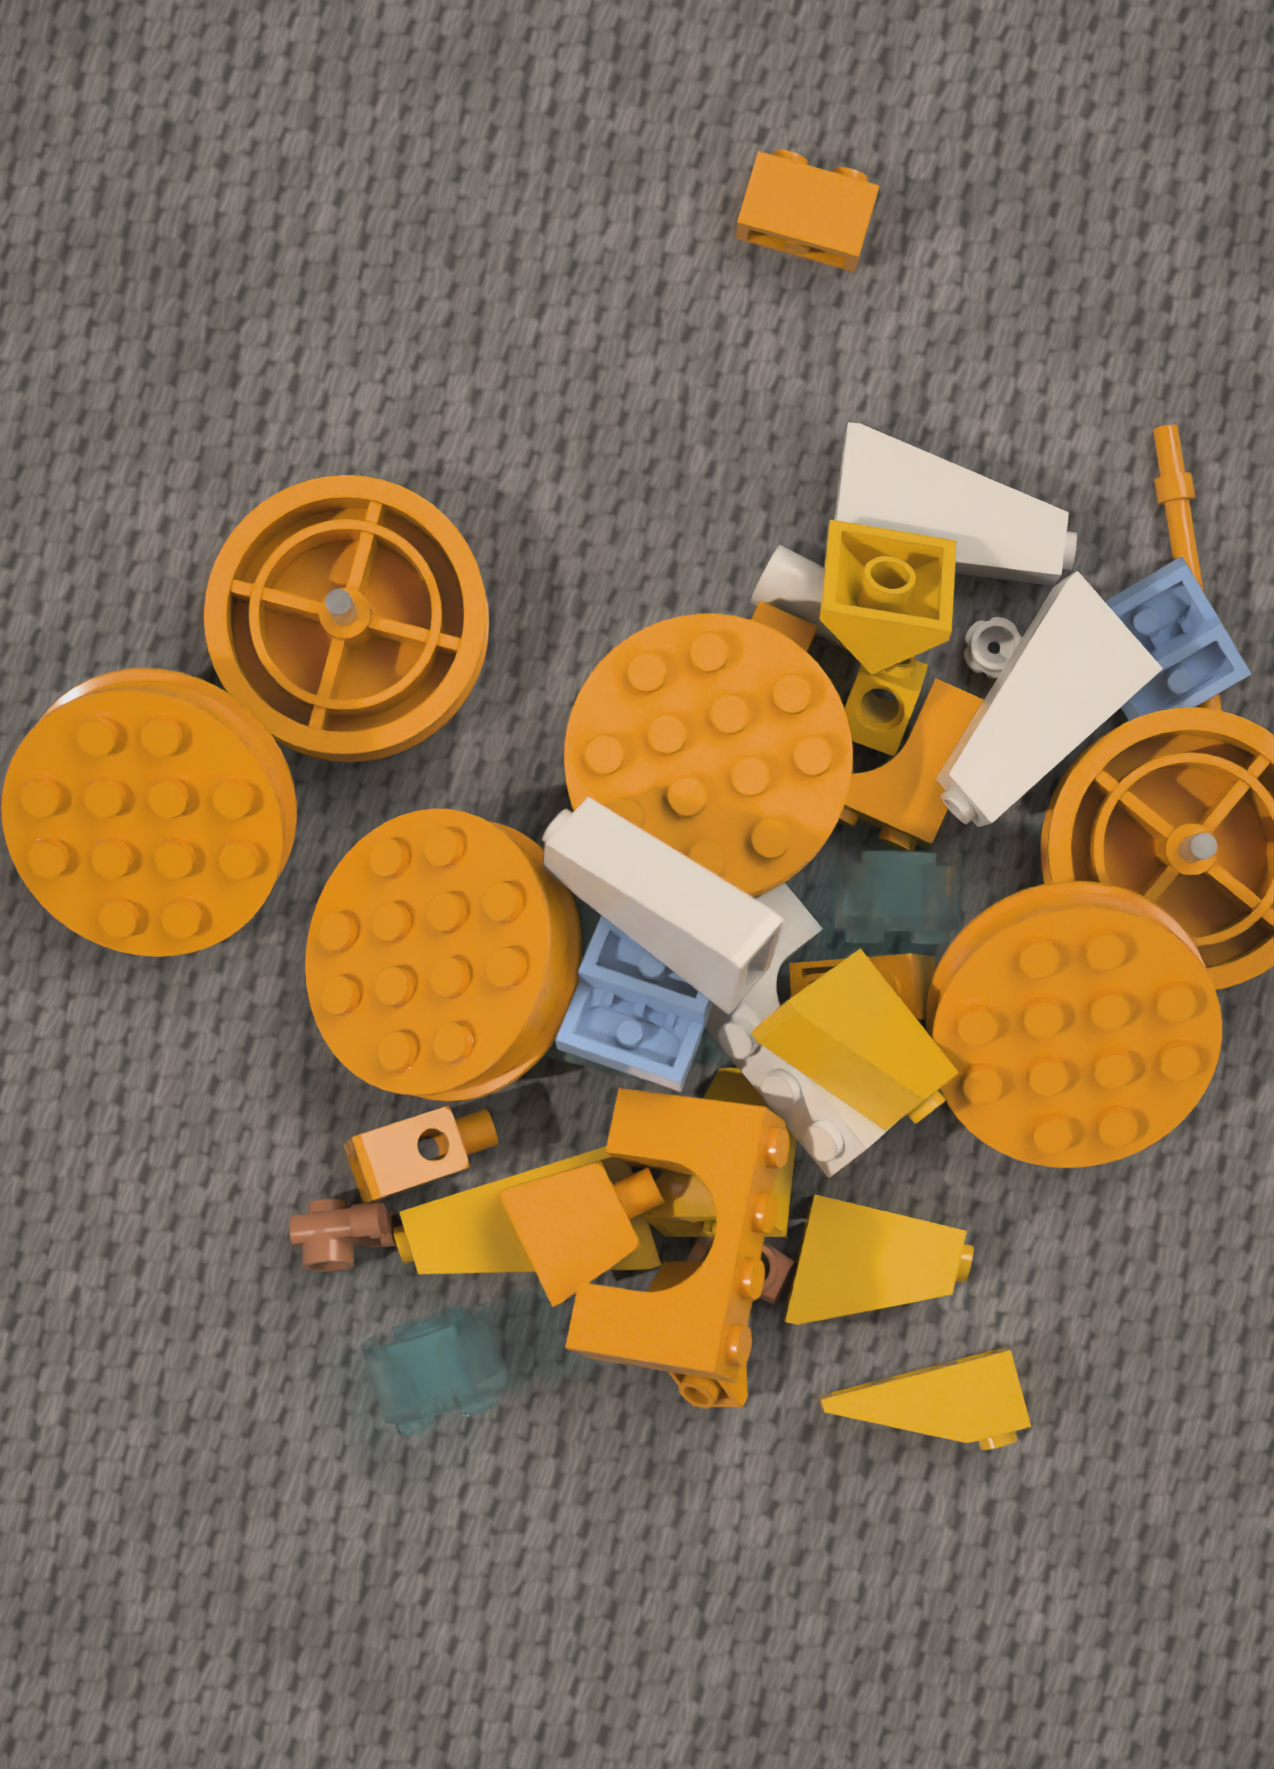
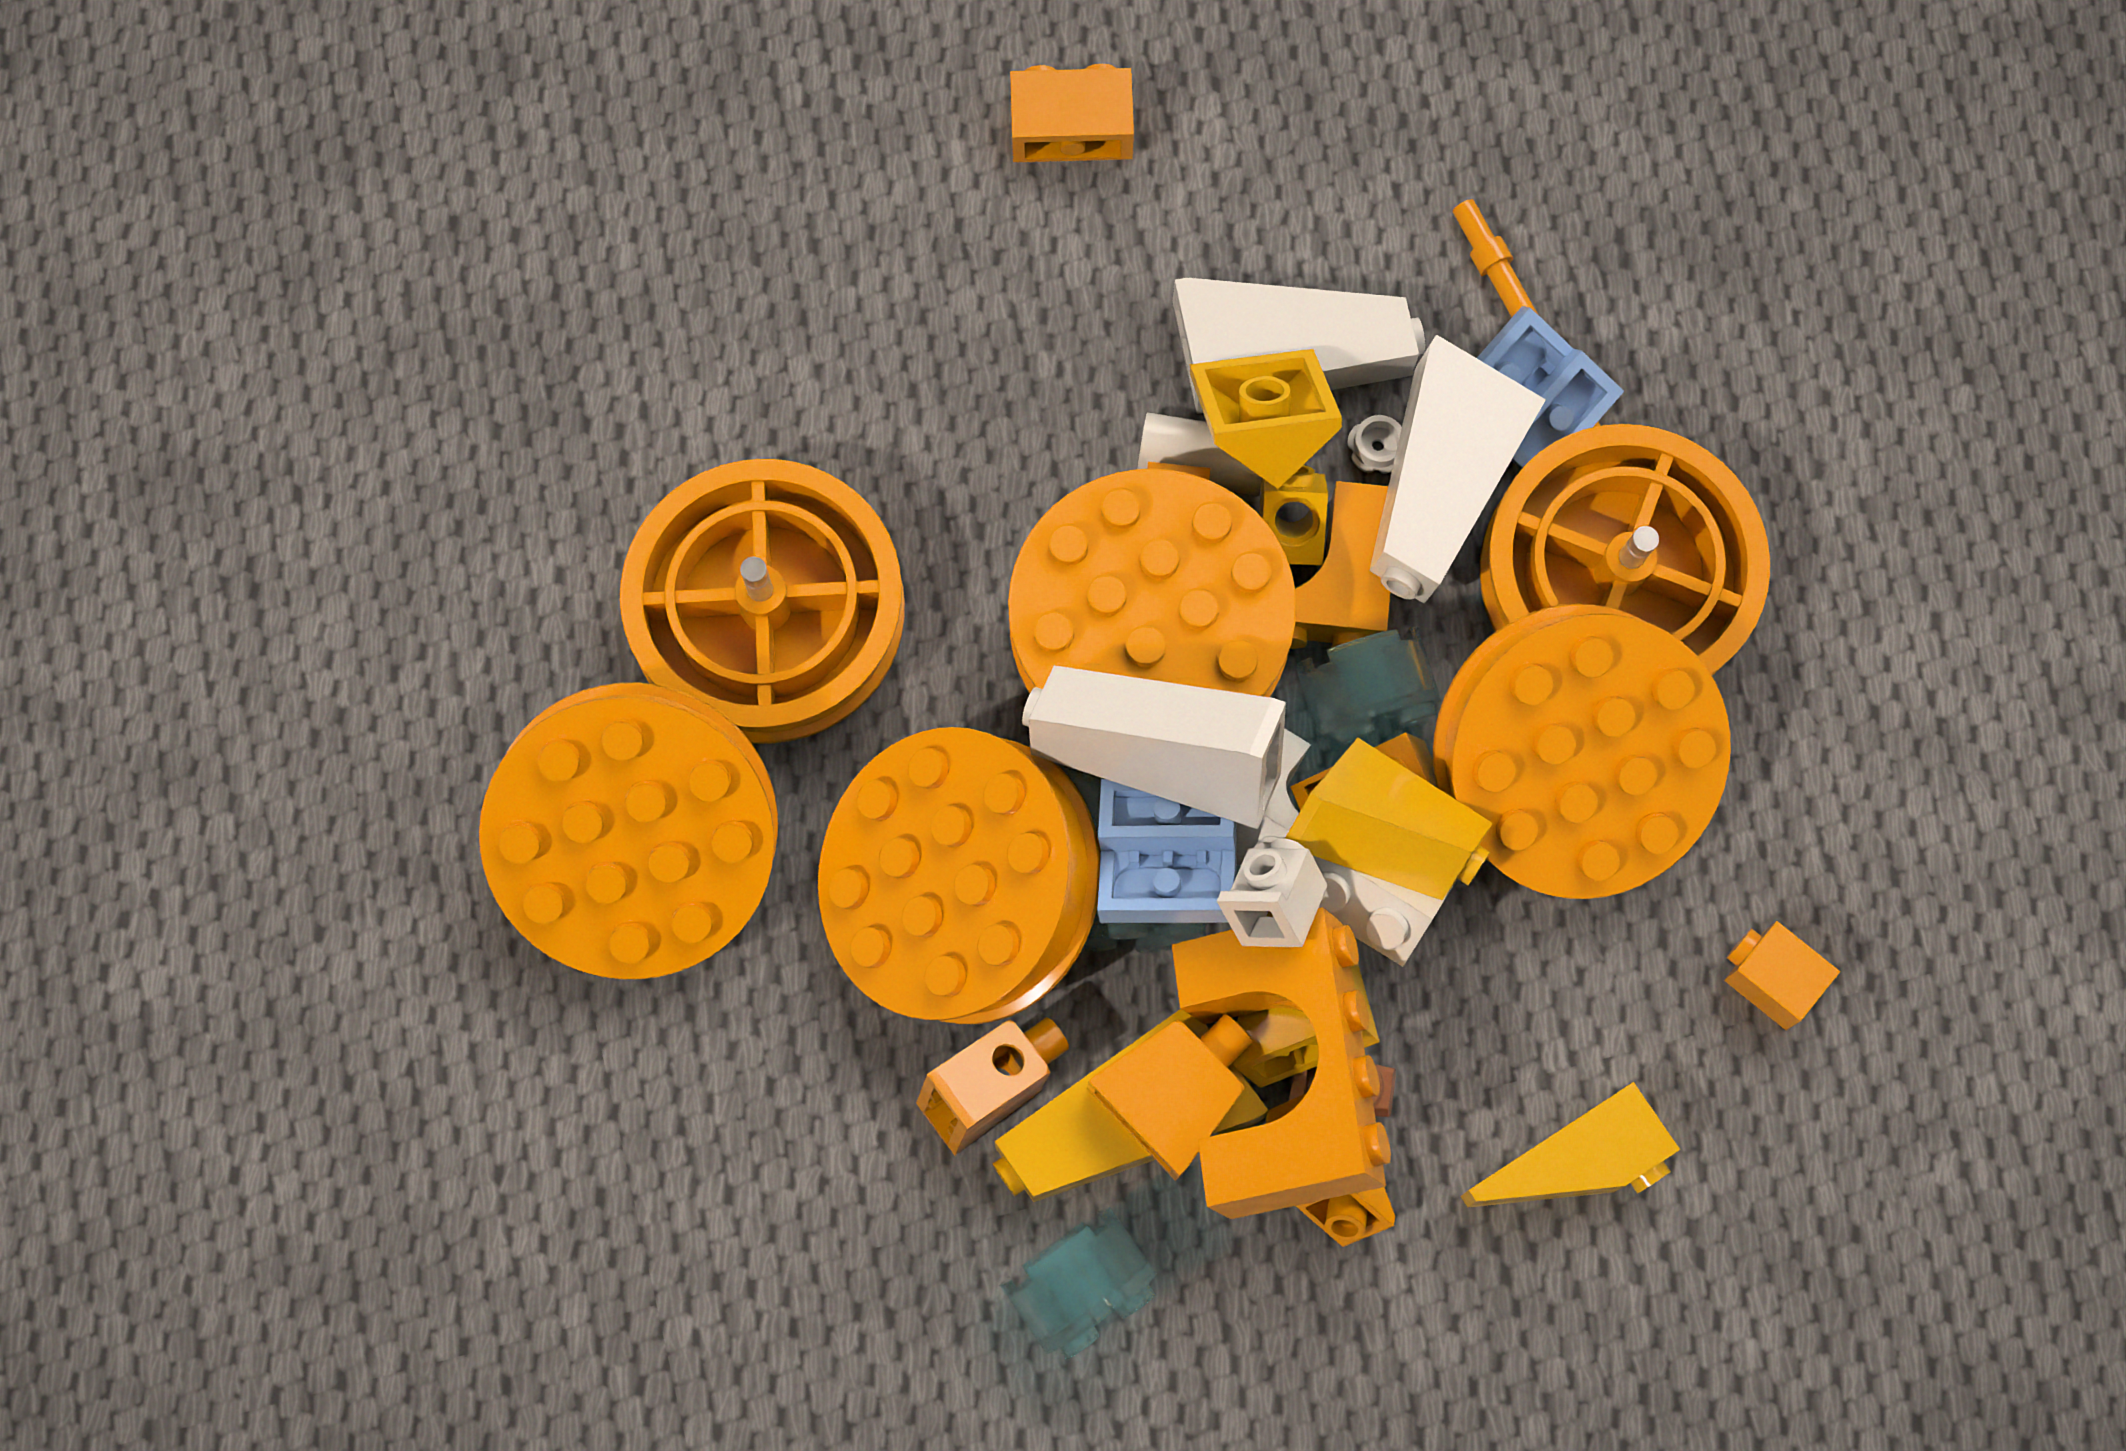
camera: 20 degrees left, 10 degrees down
(333, 1230) = (933, 1185): nougat plate -> none
(723, 1082) = (1279, 882): none -> white brick
(870, 1261) = (1465, 1042): yellow slope -> none
(1189, 1290) = (1779, 974): none -> light orange brick

